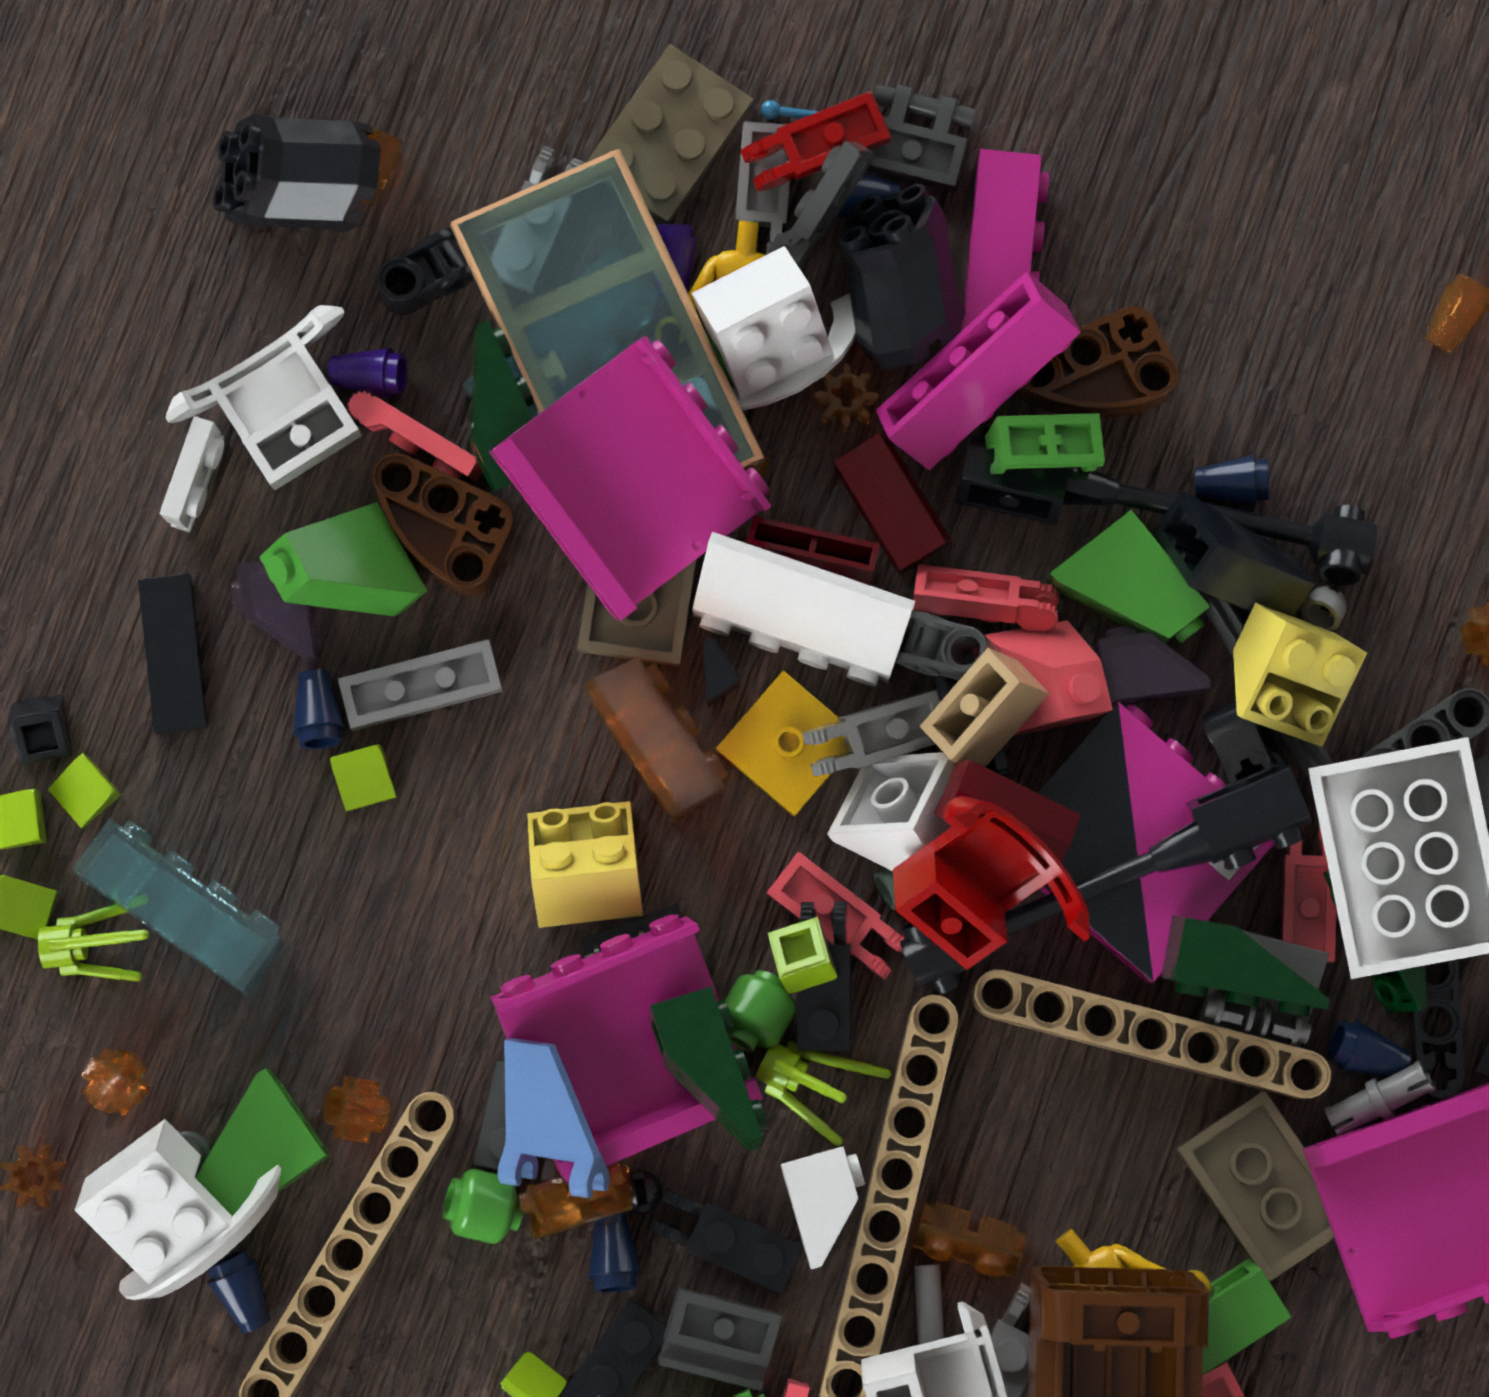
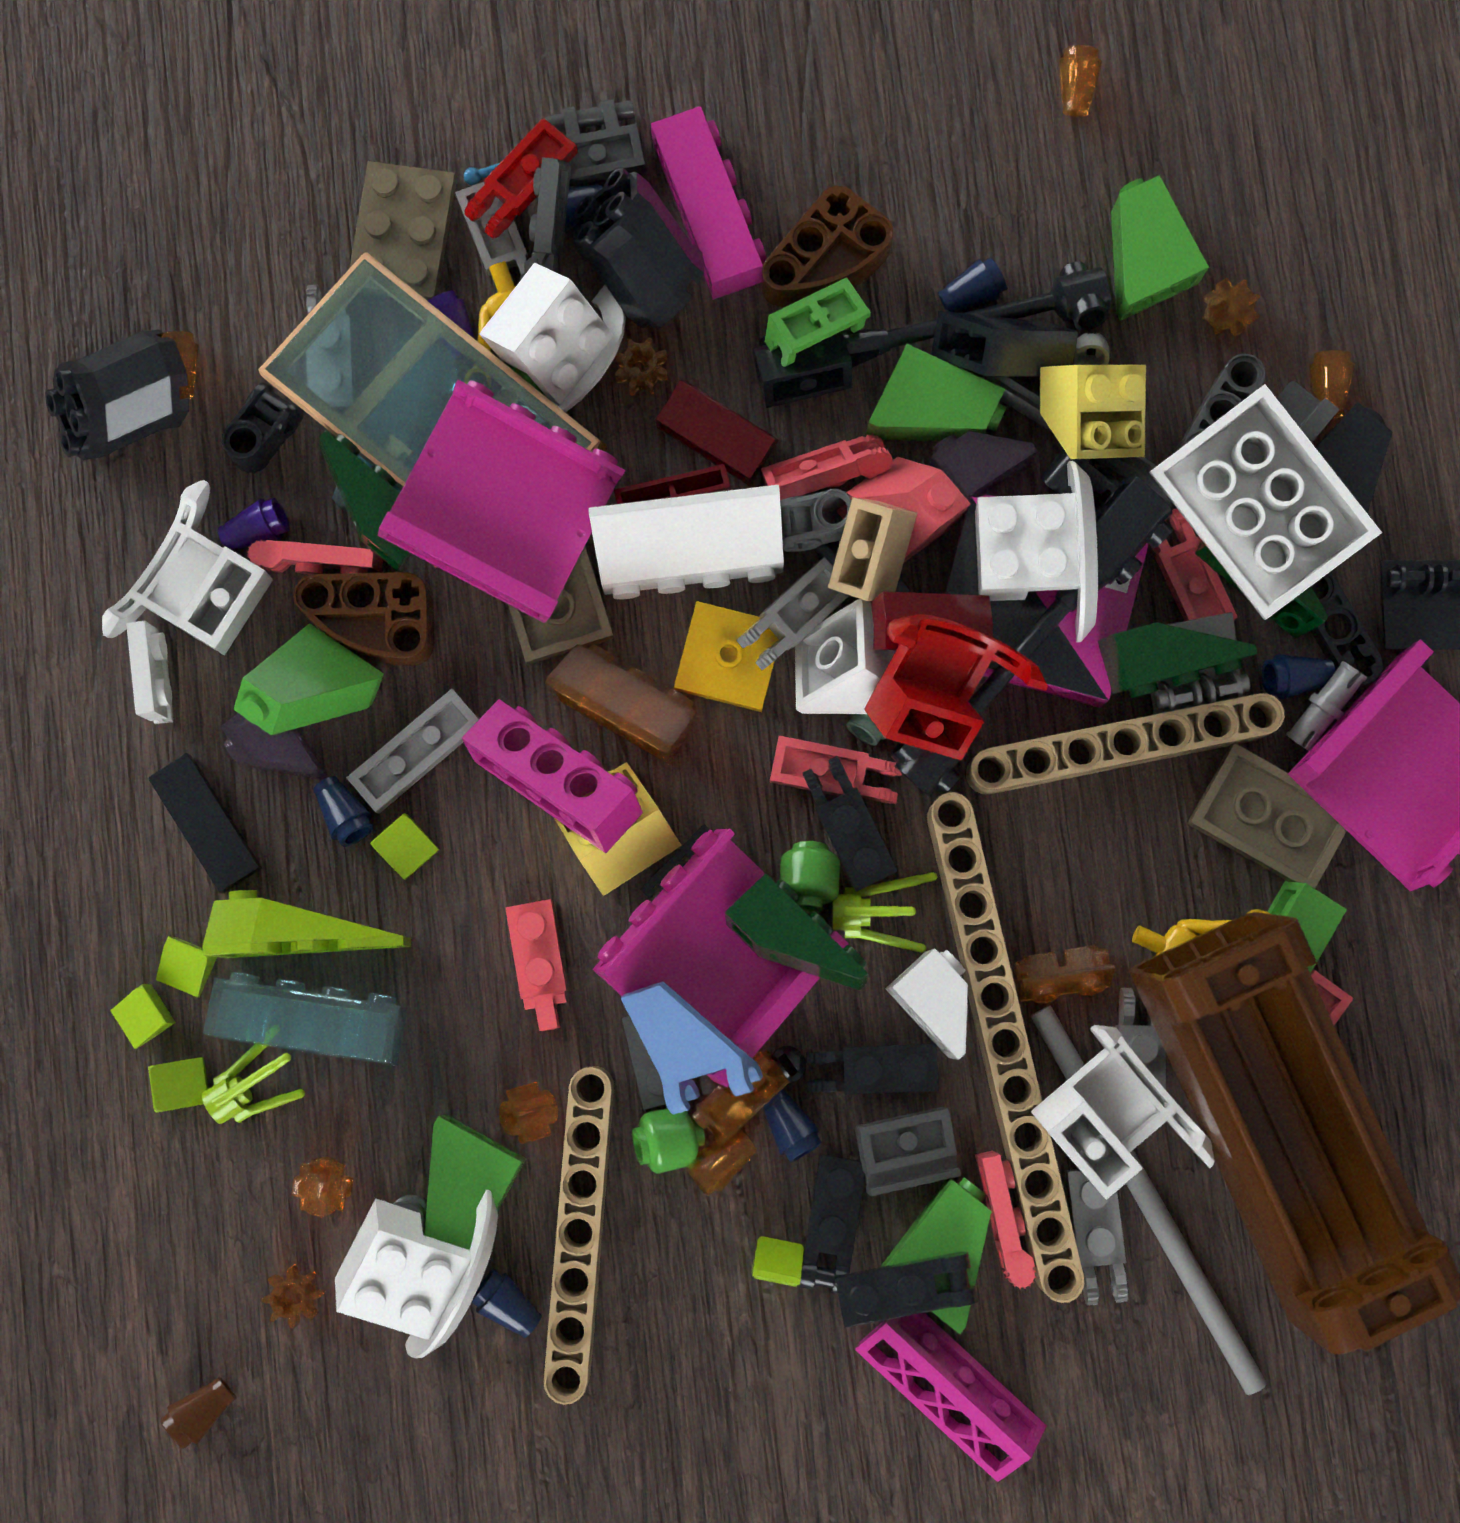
camera: 25 degrees left, 0 degrees up
(40, 729) = (126, 935): black slope -> none
(183, 791) = (269, 928): none -> lime wedge
(441, 960) = (538, 960): none -> coral hinge
(522, 1257) = (719, 1164): none -> clear orange cone
(569, 847) = (597, 818): none -> dark pink brick
(719, 673) = (647, 626): black slope -> none
(802, 955) = (824, 814): lime slope -> none
(978, 371) = (735, 290): dark pink brick -> none
(1158, 790) = (1041, 546): none -> white piece
(1442, 530) = (1151, 248): none -> bright green slope

